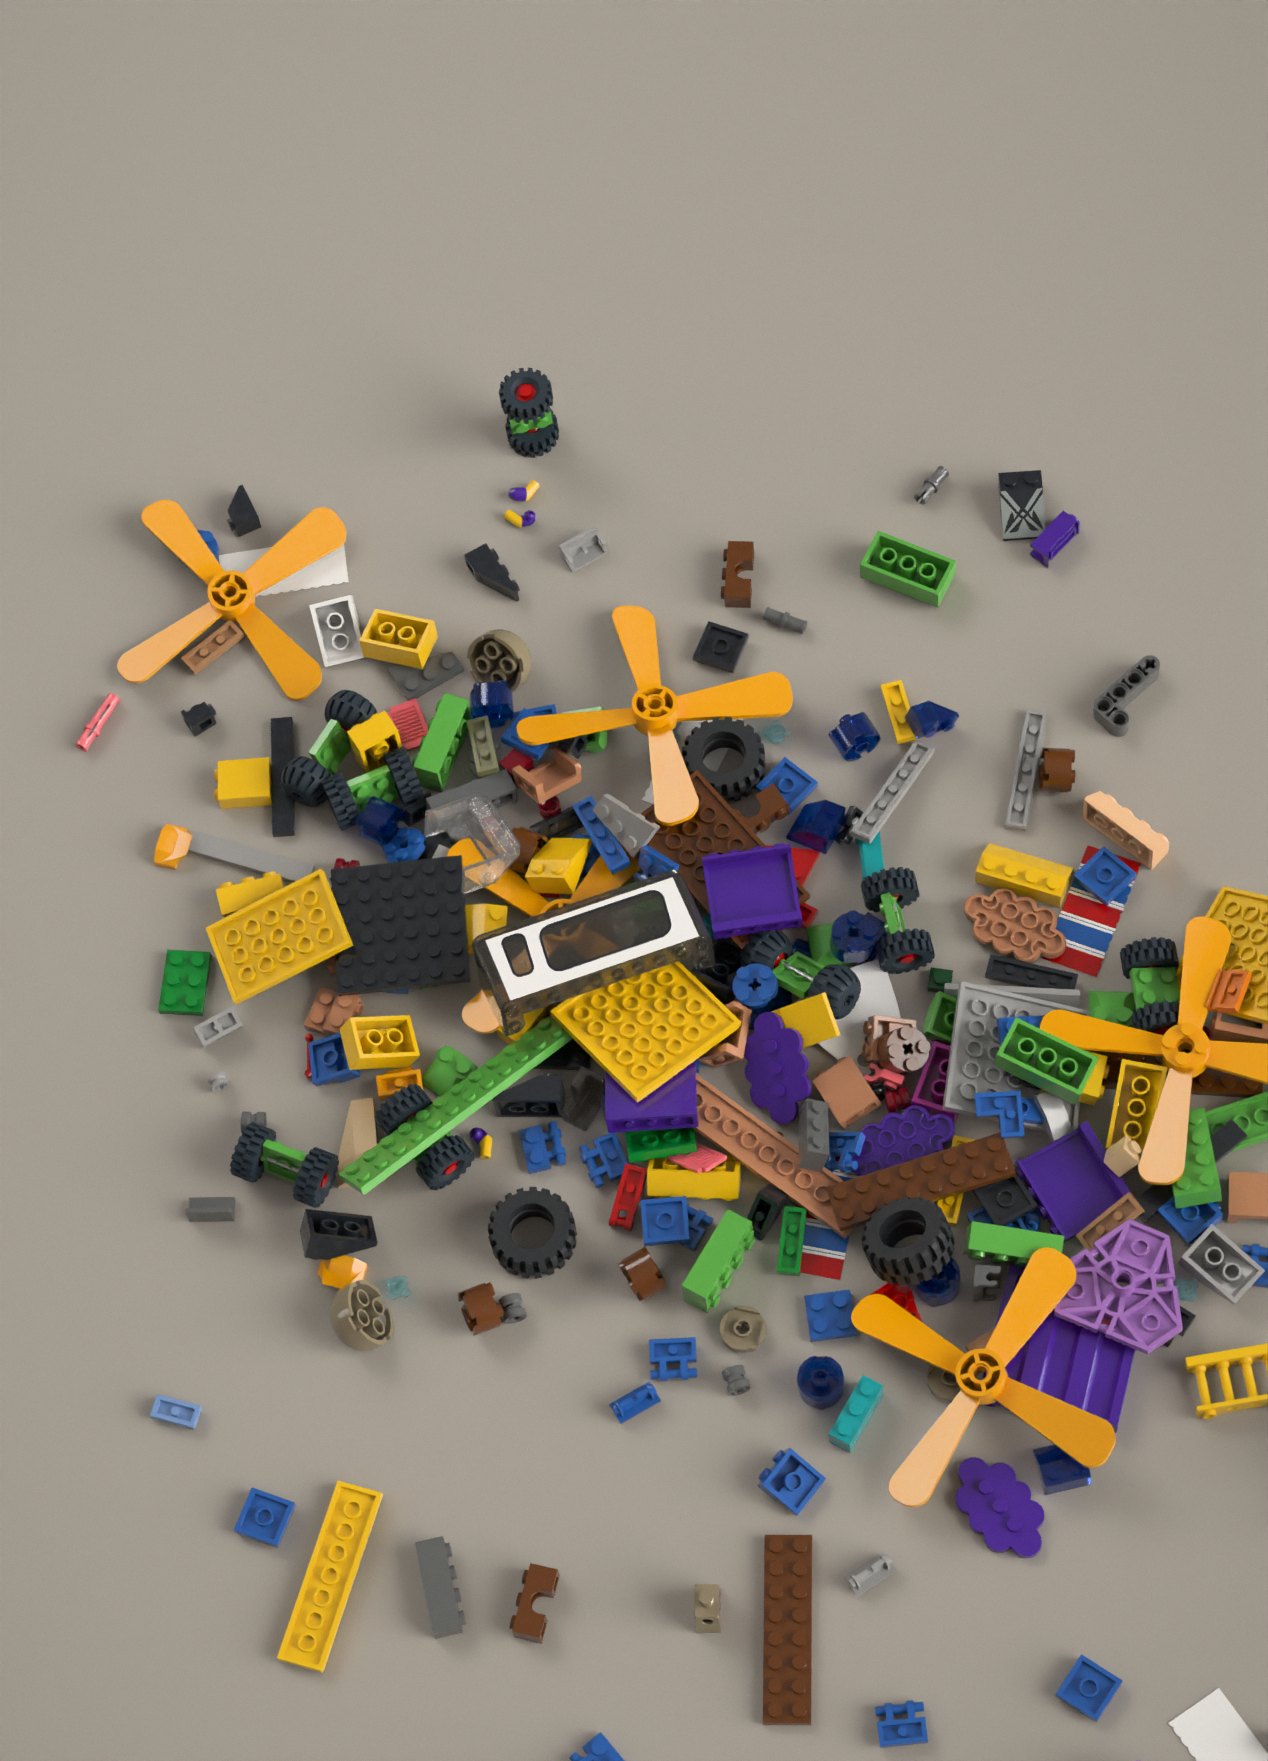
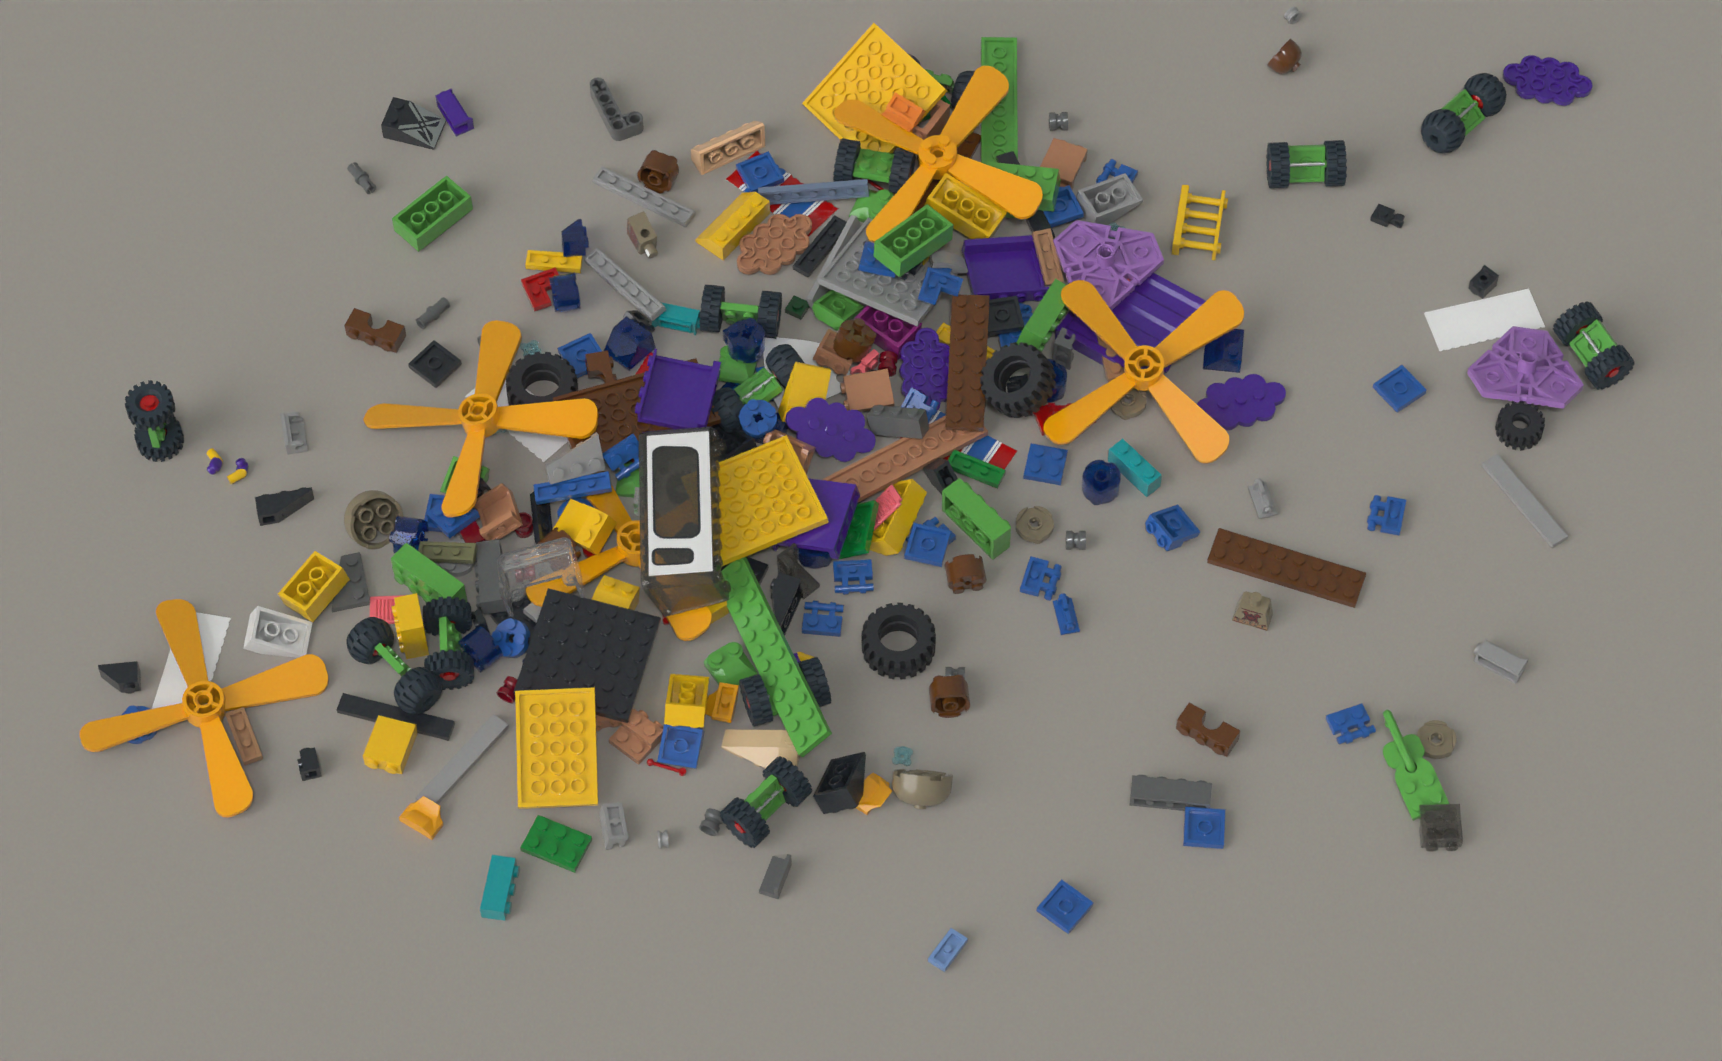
camera: 80 degrees left, 5 degrees down
(85, 741) = (277, 852): coral pin -> none
(114, 946) = (499, 887): none -> teal brick
(238, 896) = (500, 766): yellow brick -> none
(330, 1576) = (1132, 871): yellow plate -> none
(409, 1637) = (1204, 827): none -> blue plate
(628, 1196) = (894, 567): red plate -> none
(858, 703) = (537, 287): none -> red plate
(964, 785) = (642, 234): none -> dark tan torso
(1094, 935) = (815, 191): none -> sand blue plate
(1123, 1156) = (1003, 225): tan brick -> none

